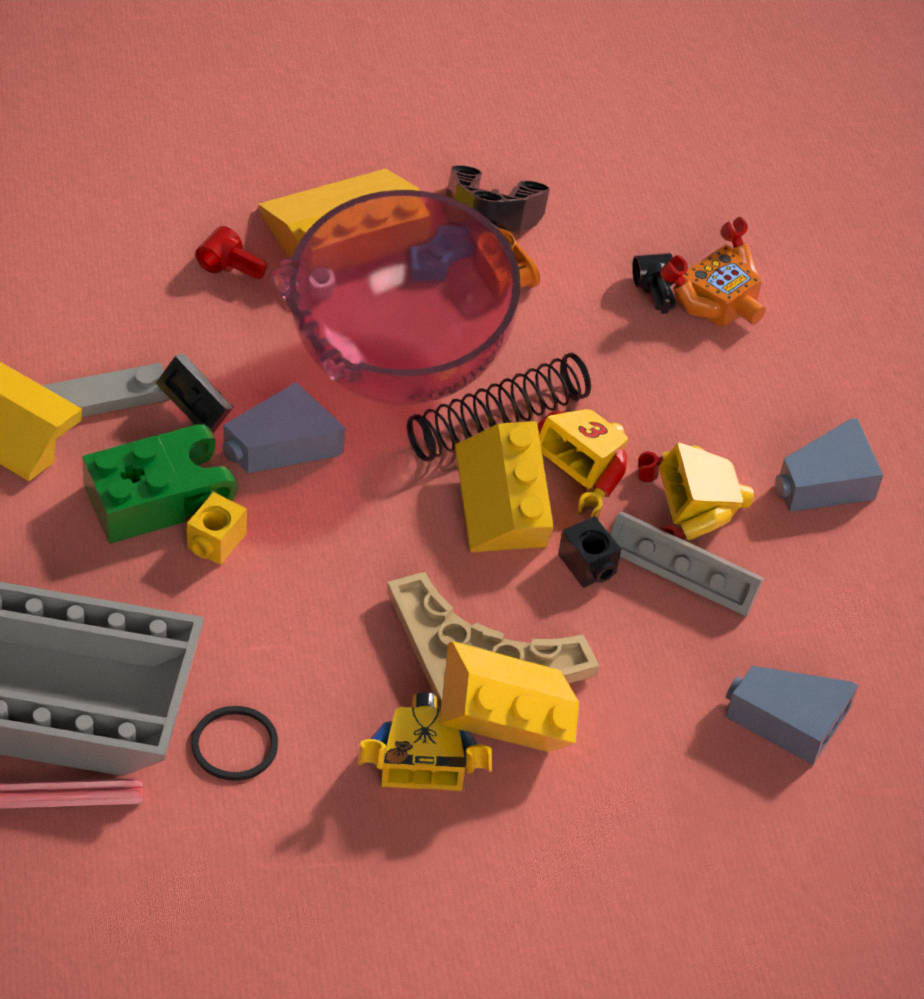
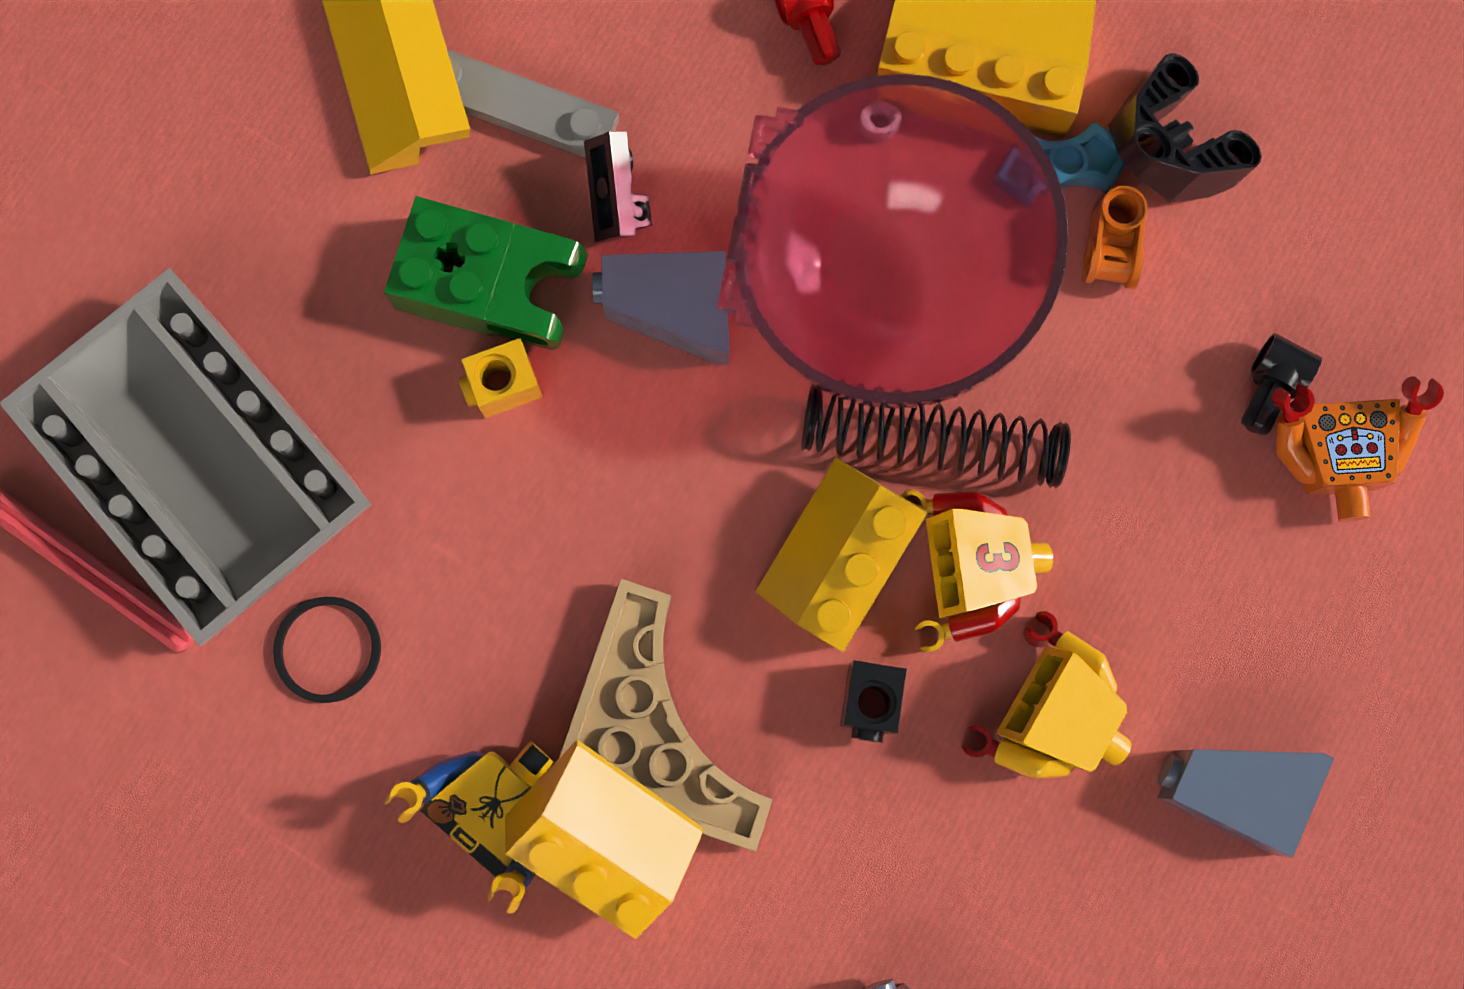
camera: 40 degrees right, 30 degrees up
(686, 564) = (965, 792): light grey plate -> none

